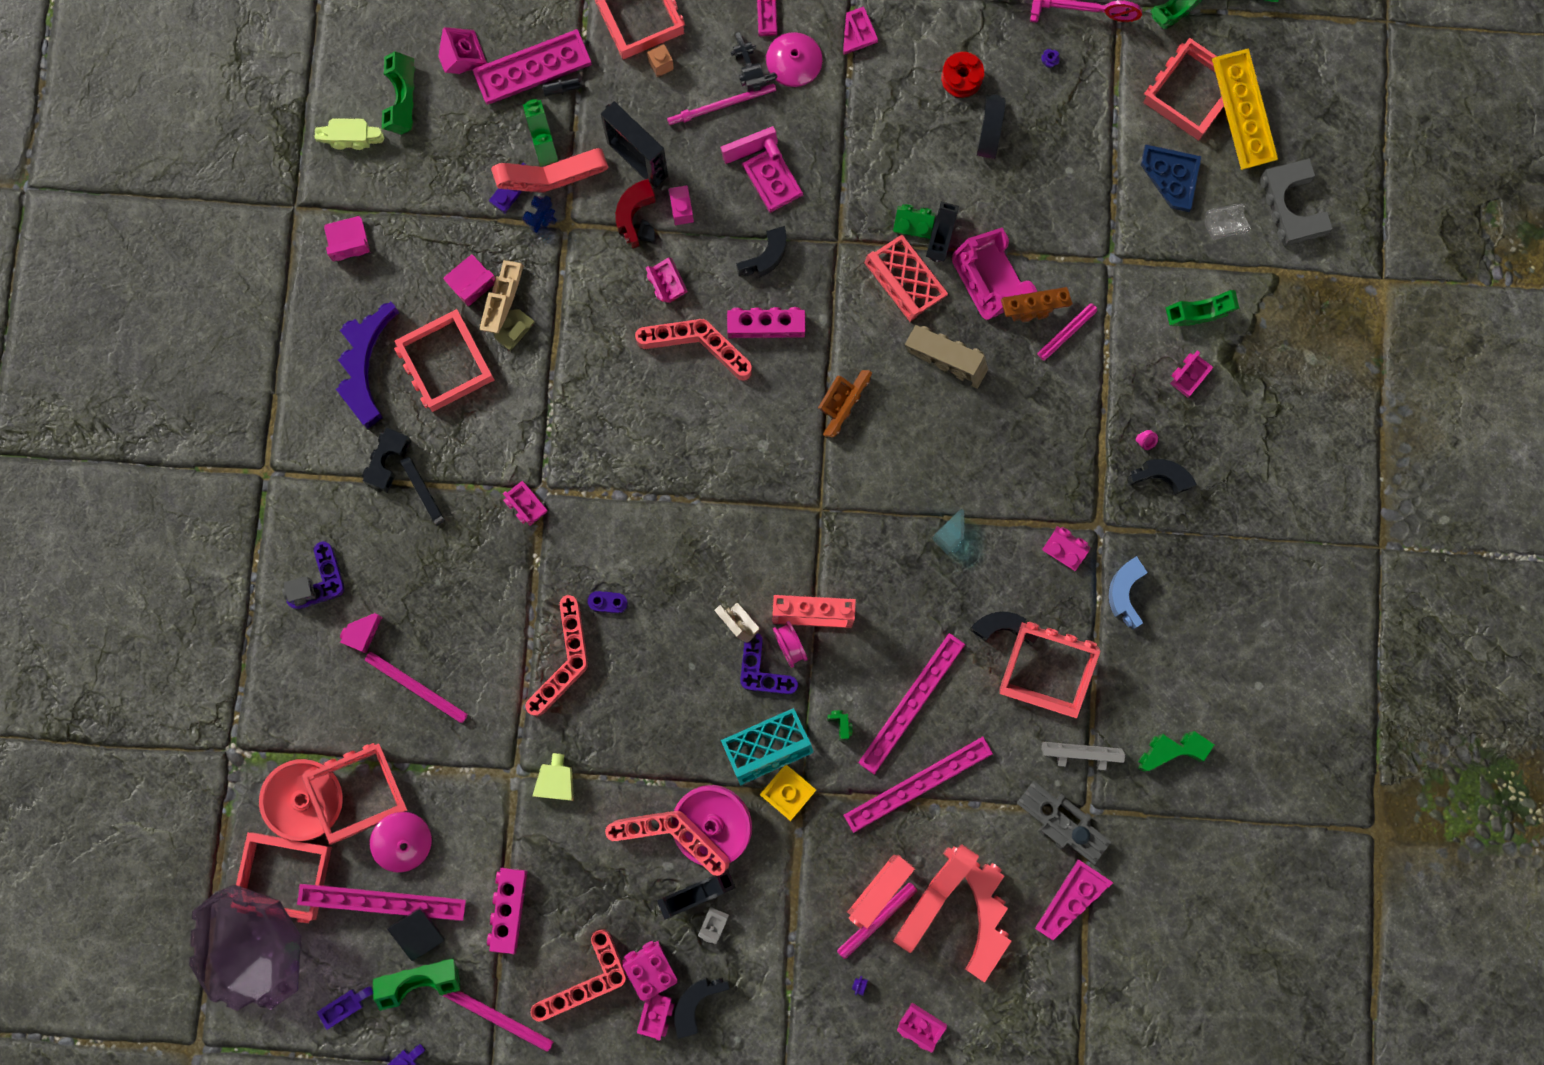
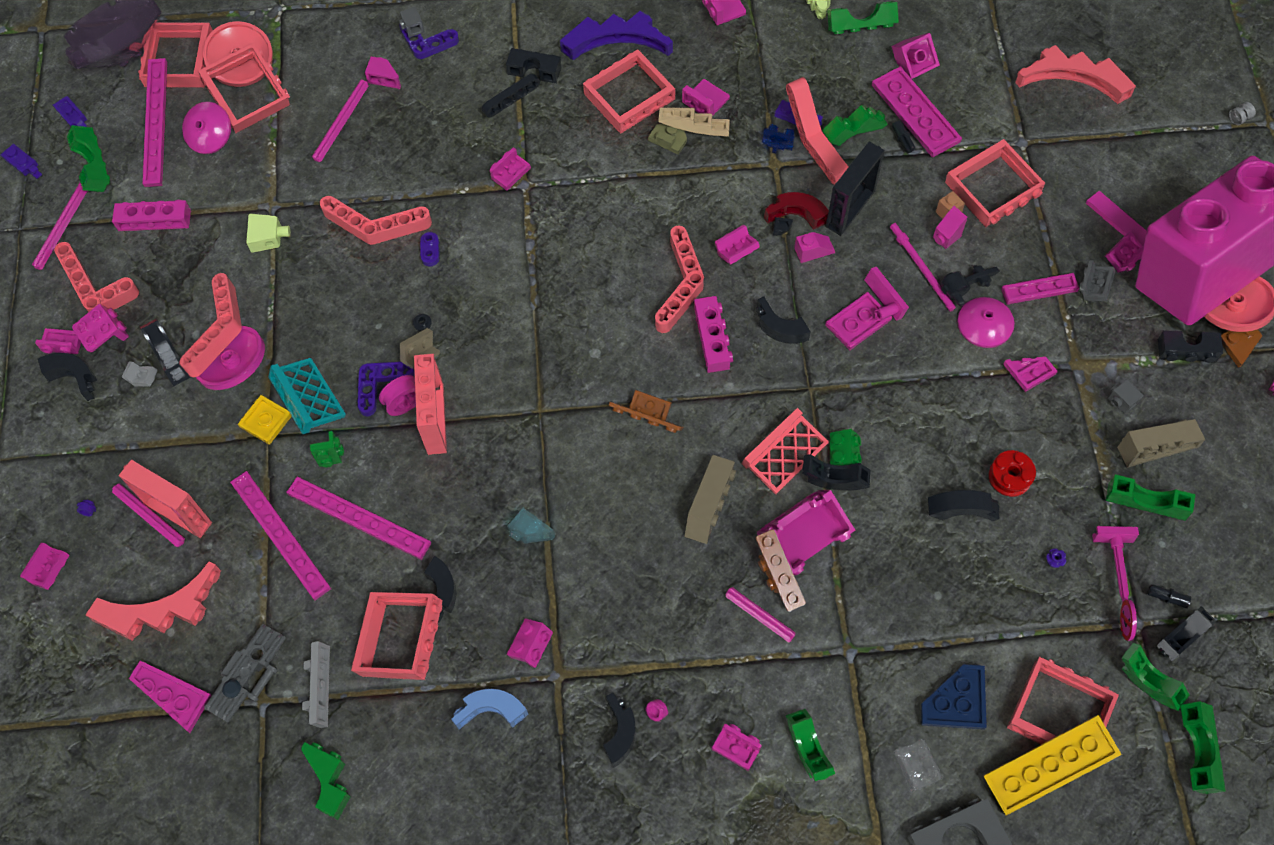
camera: 85 degrees right, 15 degrees down
(416, 934) = (130, 152): black slope -> none
(688, 66) = (950, 228): none -> dark pink slope
(700, 624) = (422, 326): none -> black plate
(934, 897) = (180, 565): coral beam -> none

